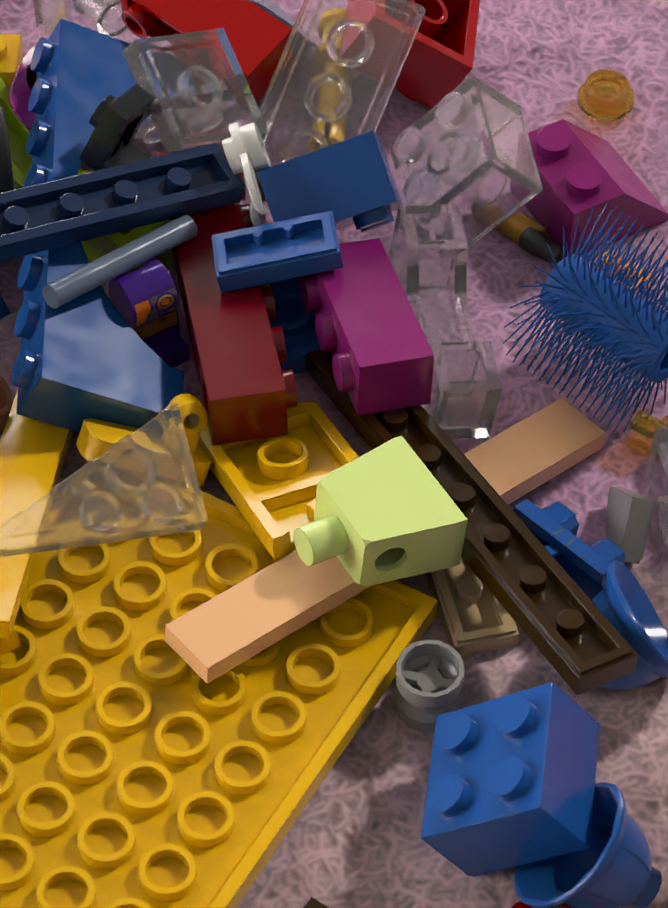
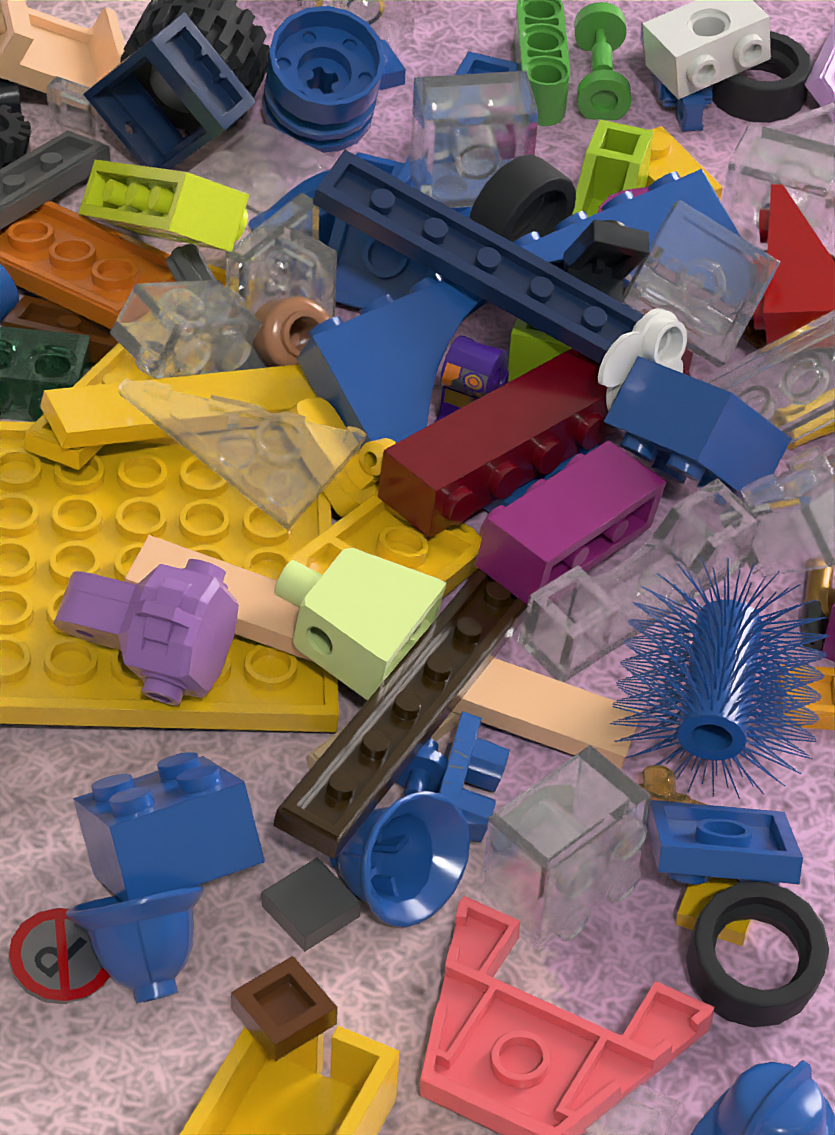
camera: 55 degrees right, 5 degrees down
(119, 261) = (479, 327): sand blue bar -> none
(276, 251) = (579, 417): blue plate -> none
(301, 661) = (168, 625): none -> medium lavender piece
(428, 683) = (249, 745): light grey wheel -> none
(624, 725) = (311, 904): none -> dark grey tile

